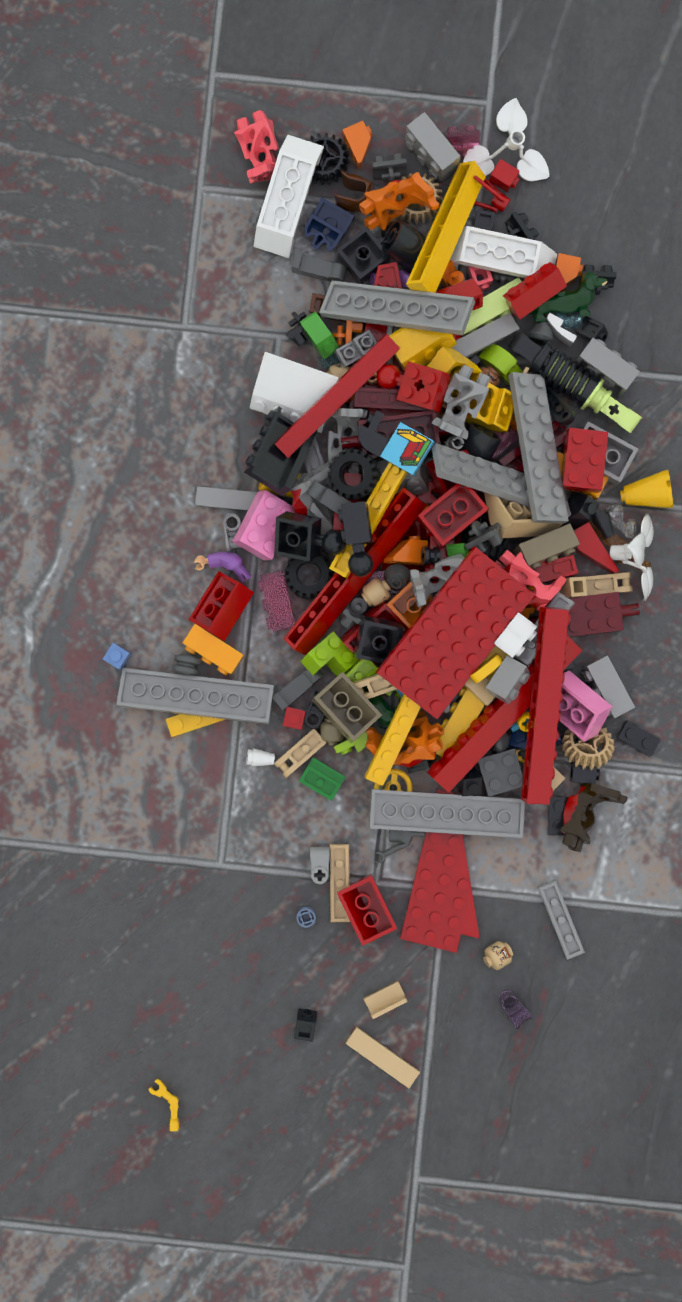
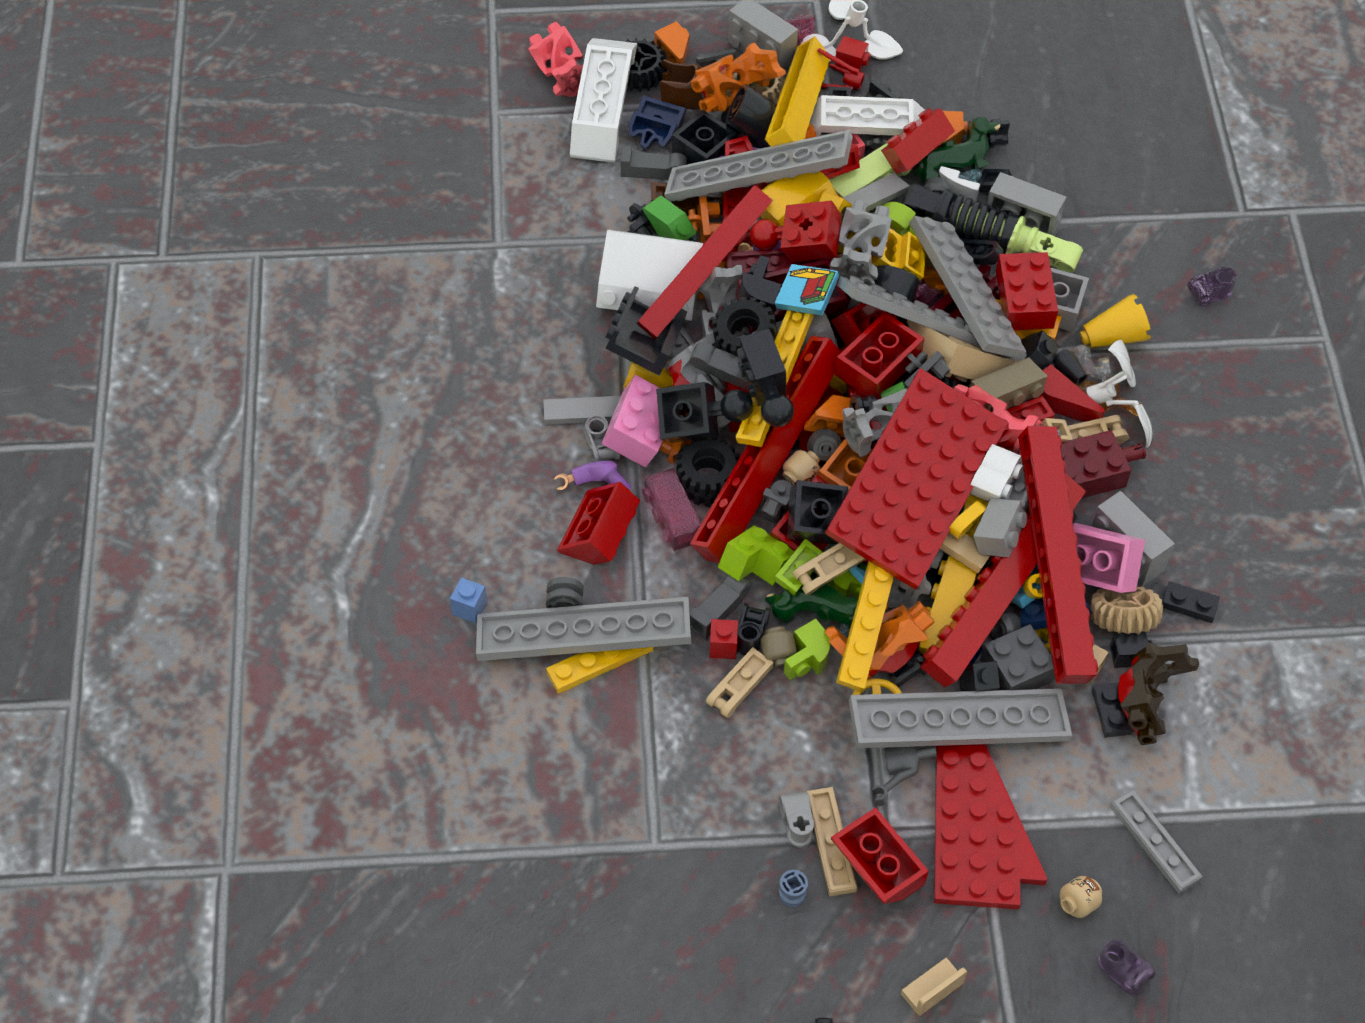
camera: 10 degrees left, 30 degrees down
(212, 650) = (599, 574): light orange brick -> none
(259, 758) = (684, 696): white cone -> none
(322, 779) = (777, 709): green plate -> none
(346, 707) = (792, 600): dark tan slope -> none
(355, 349) = (706, 228): light grey slope -> none

